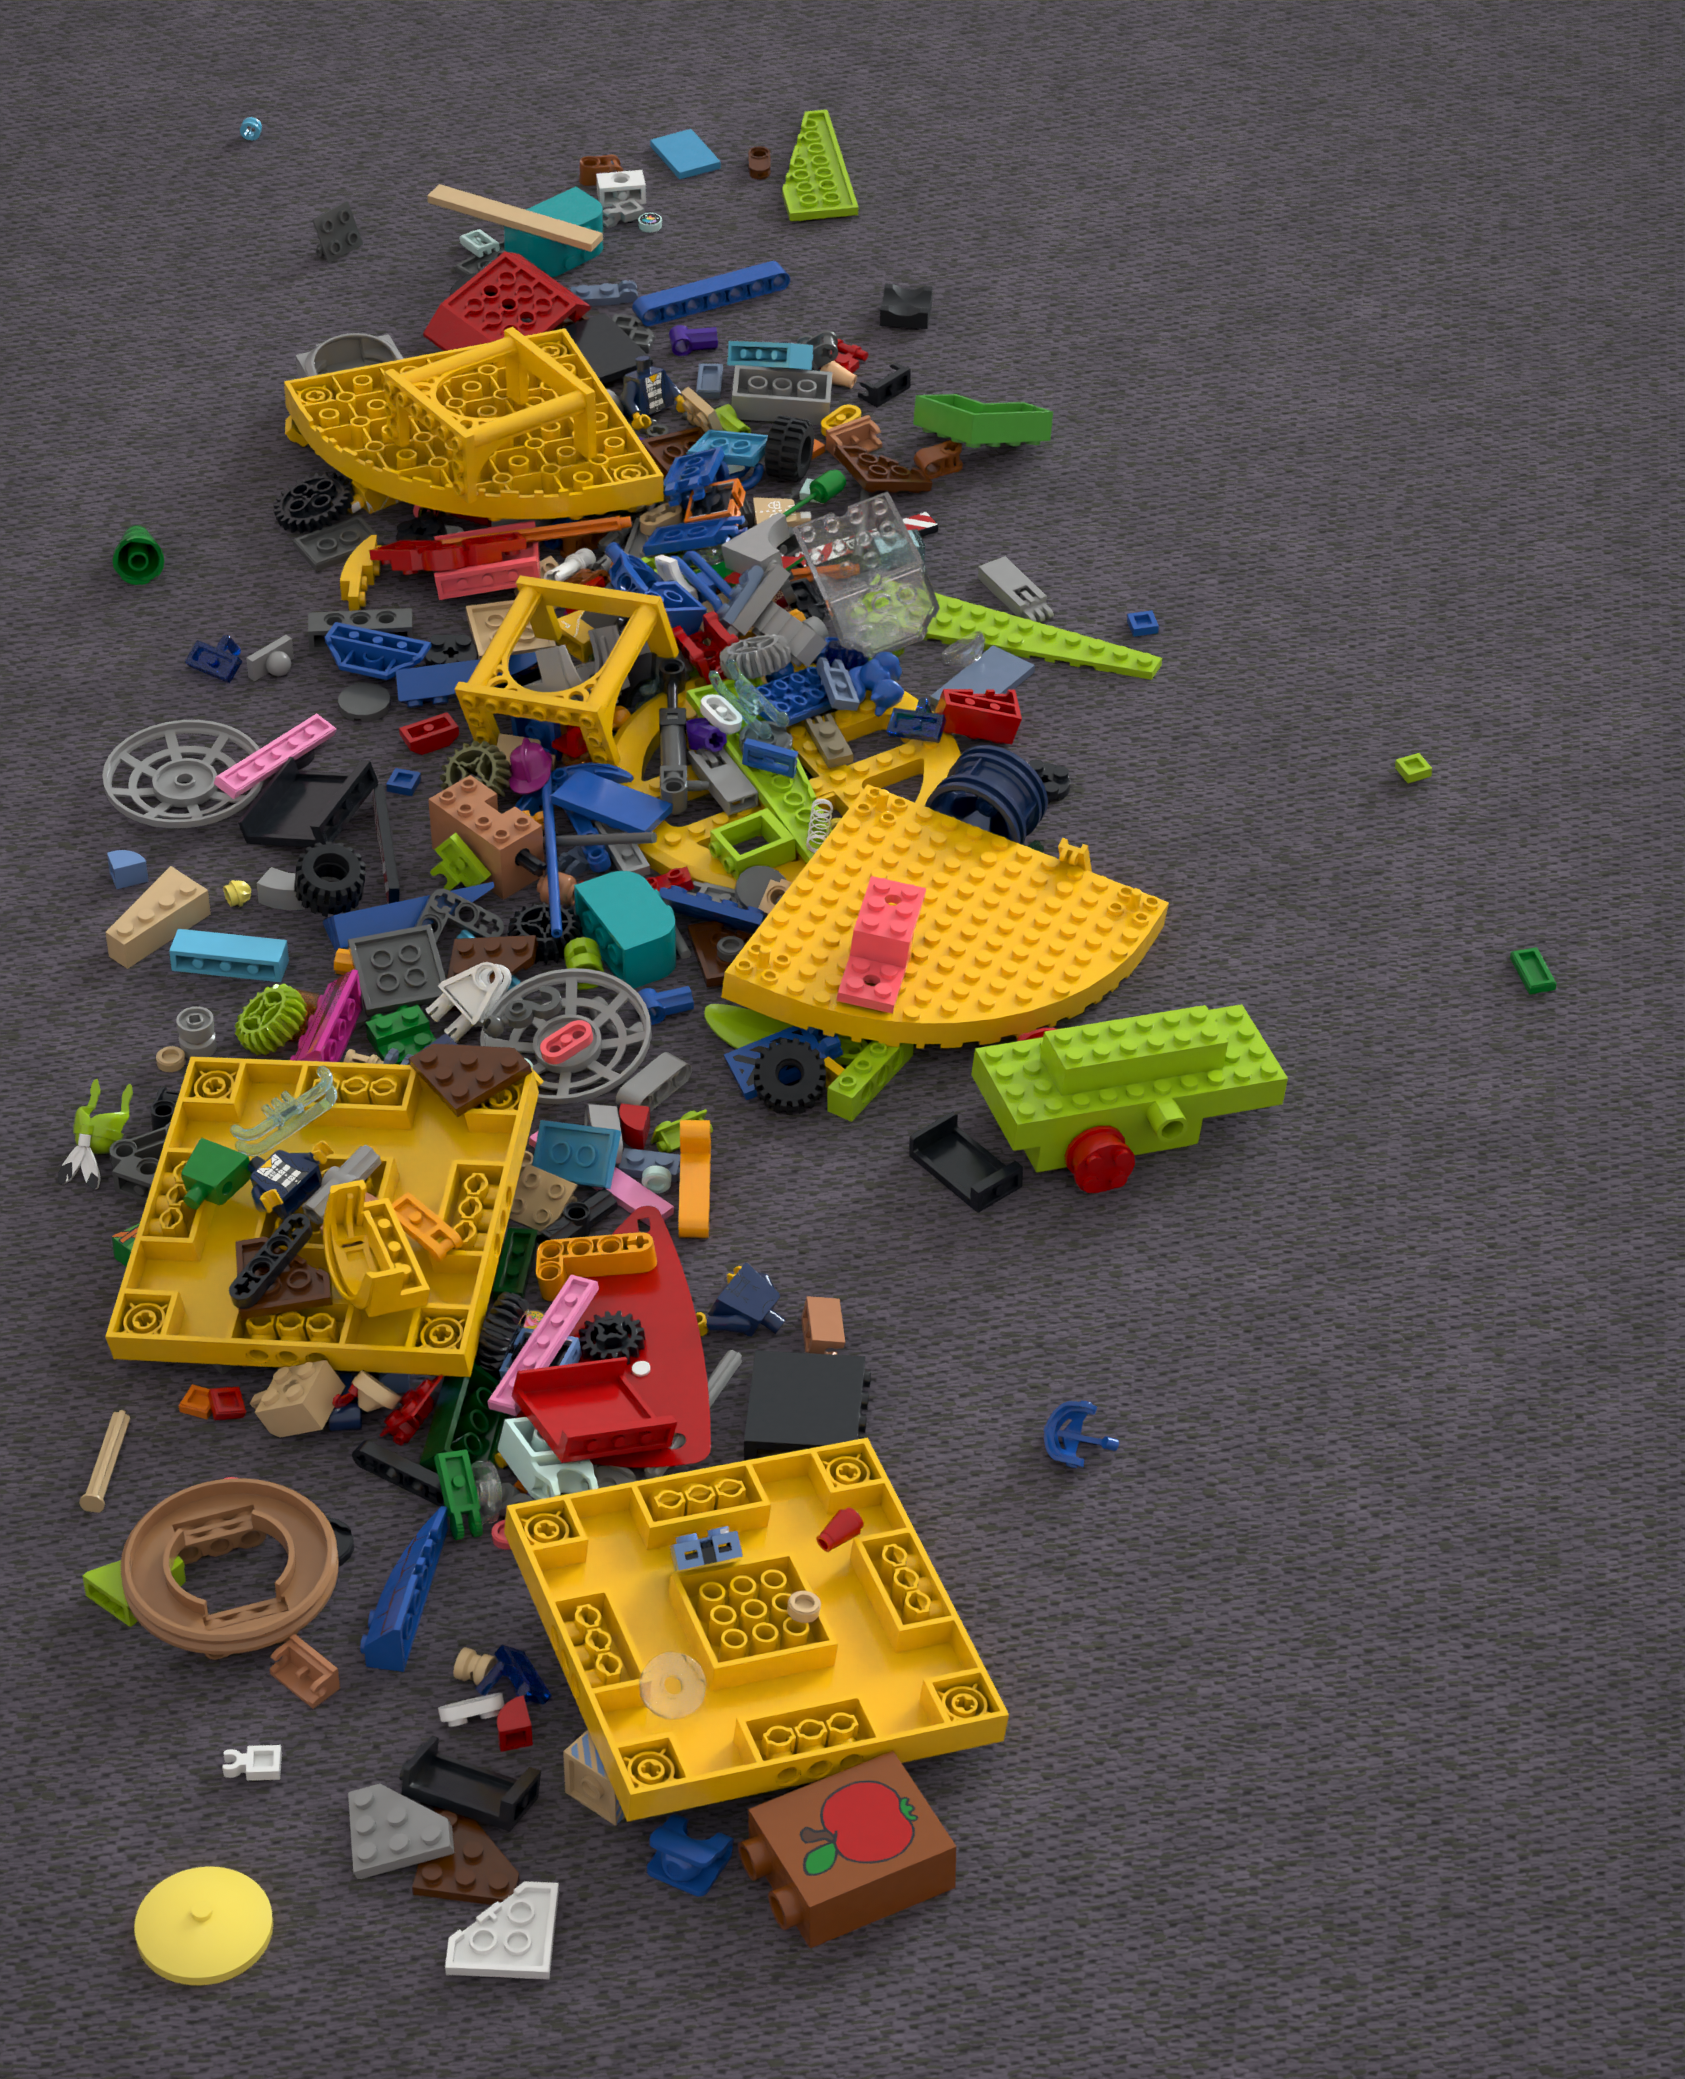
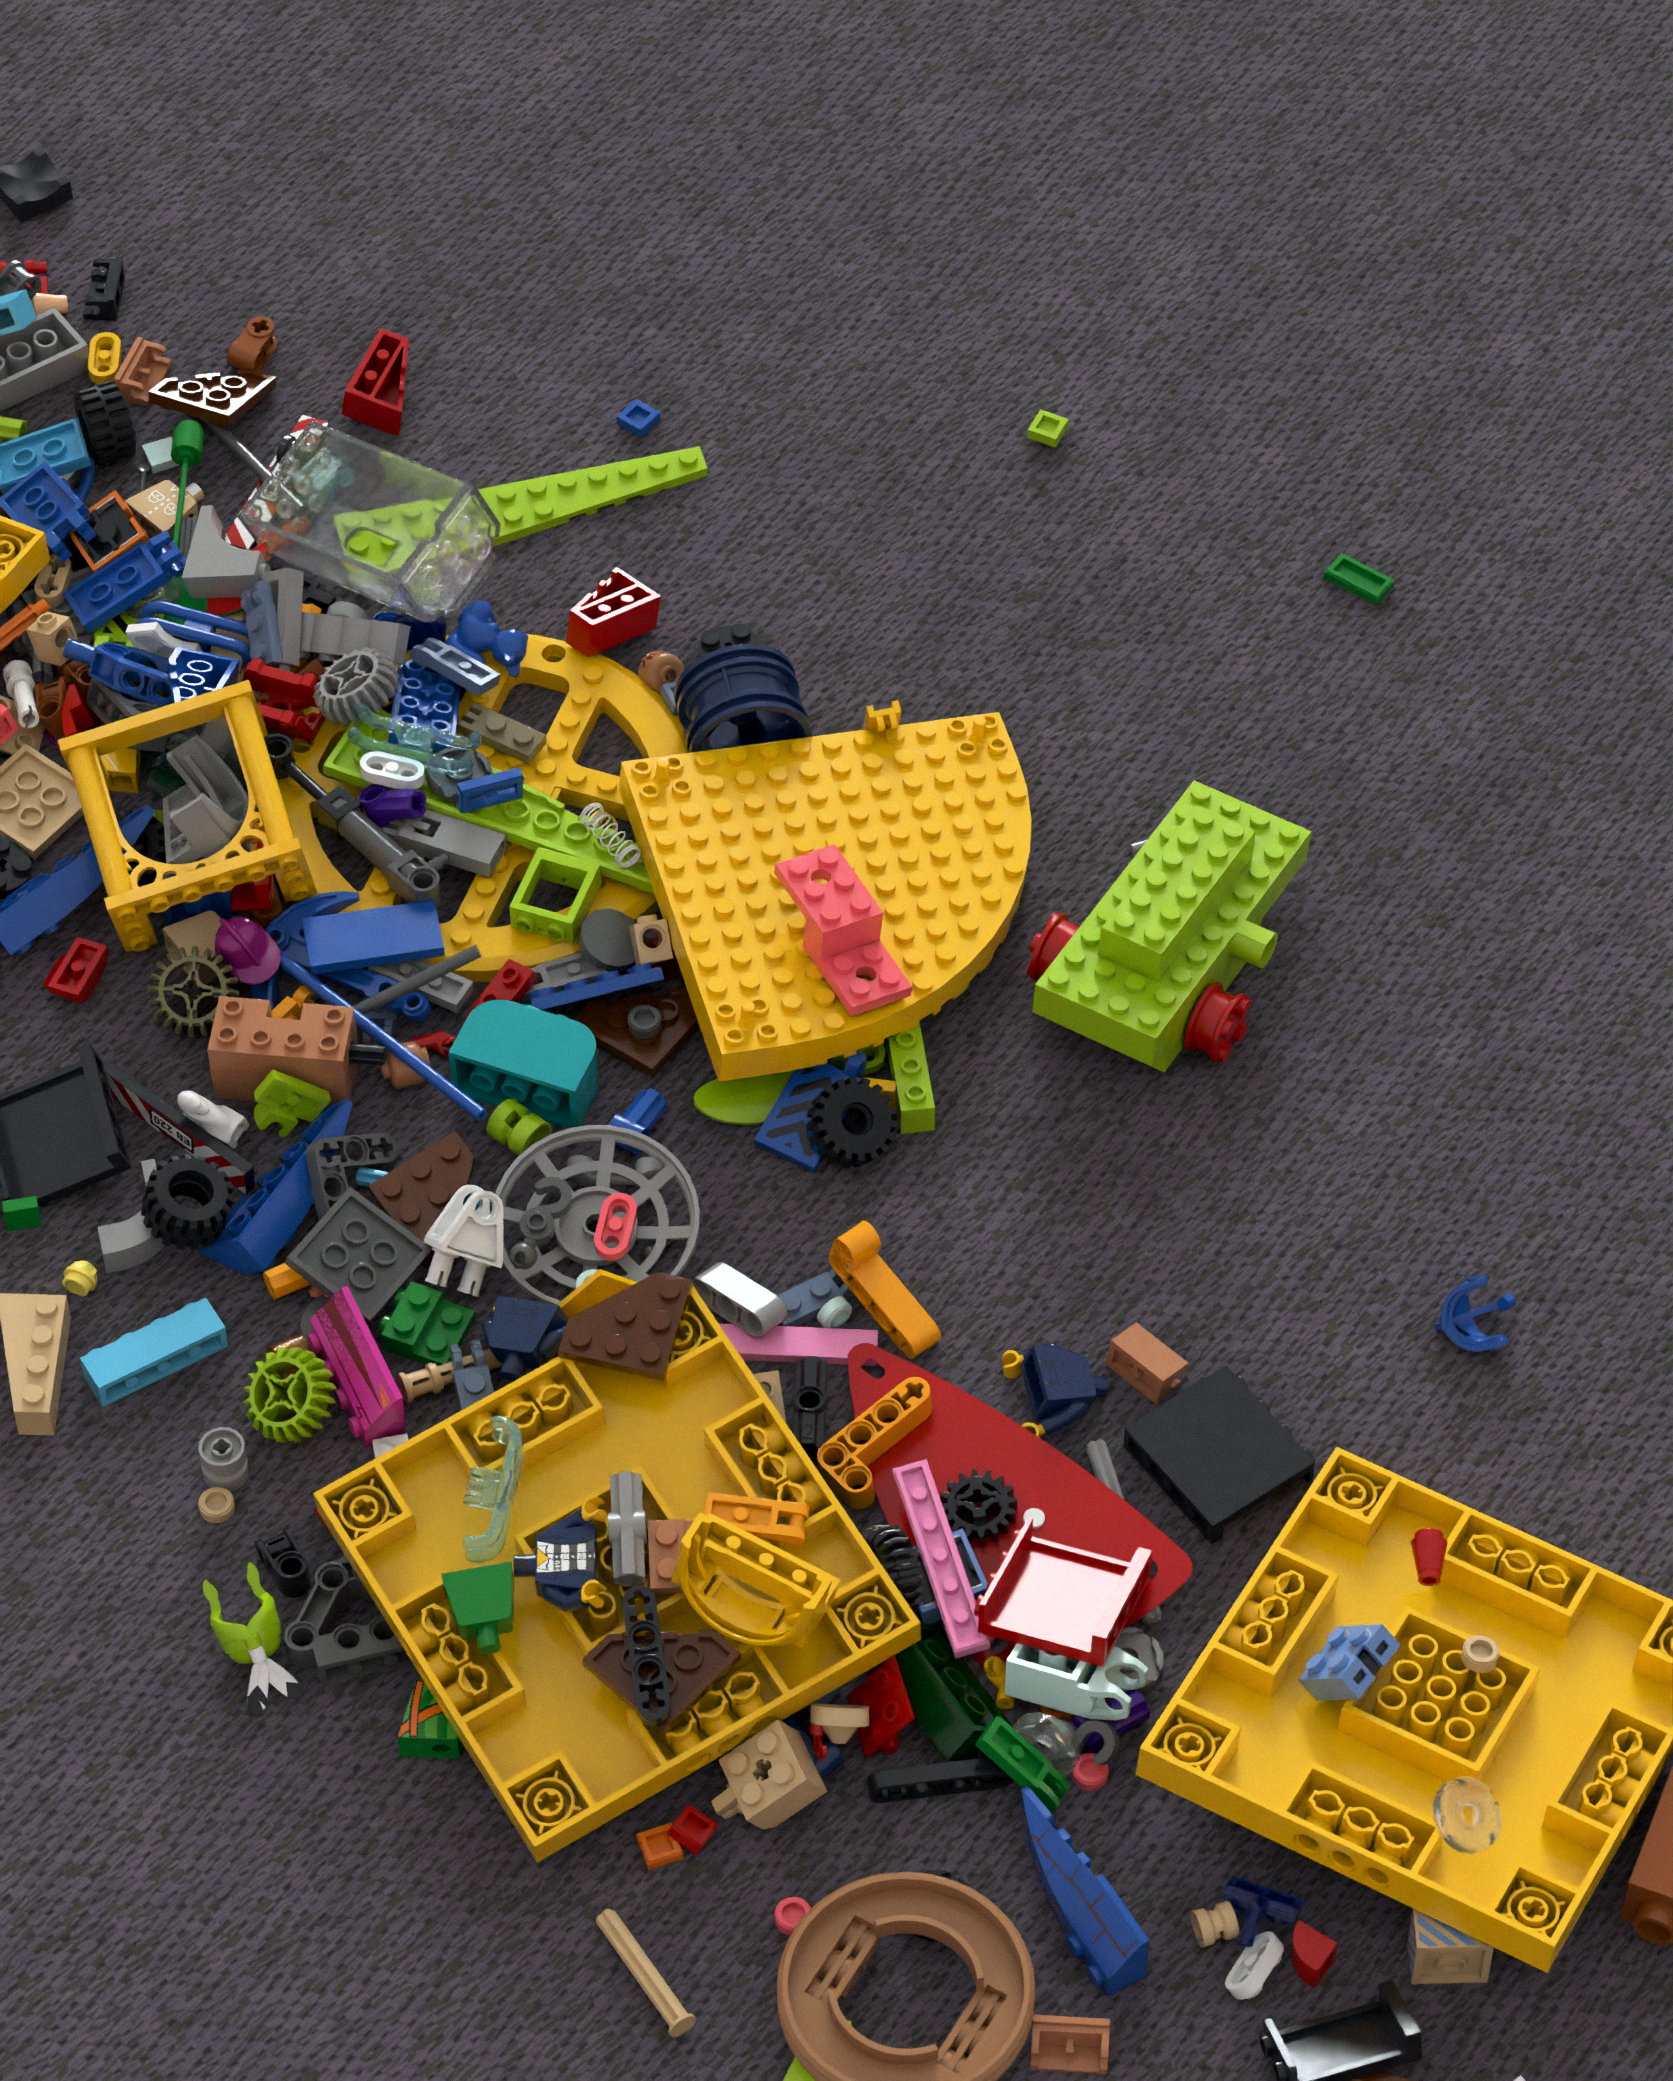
camera: 40 degrees left, 10 degrees up
(243, 839) = (21, 1213): none -> green tile
(403, 782) = (108, 1041): blue tile -> none
(406, 850) = (215, 1119): none -> white animal
(536, 921) = (439, 1118): black gear -> none
(577, 1152) = (764, 1331): dark azure tile -> none
(613, 532) = (50, 636): none -> tan brick
(634, 1125) = (756, 1266): red brick -> none
(655, 1082) = (722, 1215): light grey beam -> none
(669, 1133) = (804, 1235): lime hinge -> none
(686, 1861) = (1593, 1971): blue piece -> none
(917, 724) = (572, 663): clear blue plate -> none
(963, 1163) = (1087, 1107): black panel -> none
(965, 650) = (513, 548): clear piece -> none
(981, 422) = (262, 286): bright green piece -> none
(991, 515) = (378, 384): none -> red wedge
(992, 671) = (556, 574): sand blue tile -> none
(1005, 579) = (471, 449): light grey hinge -> none

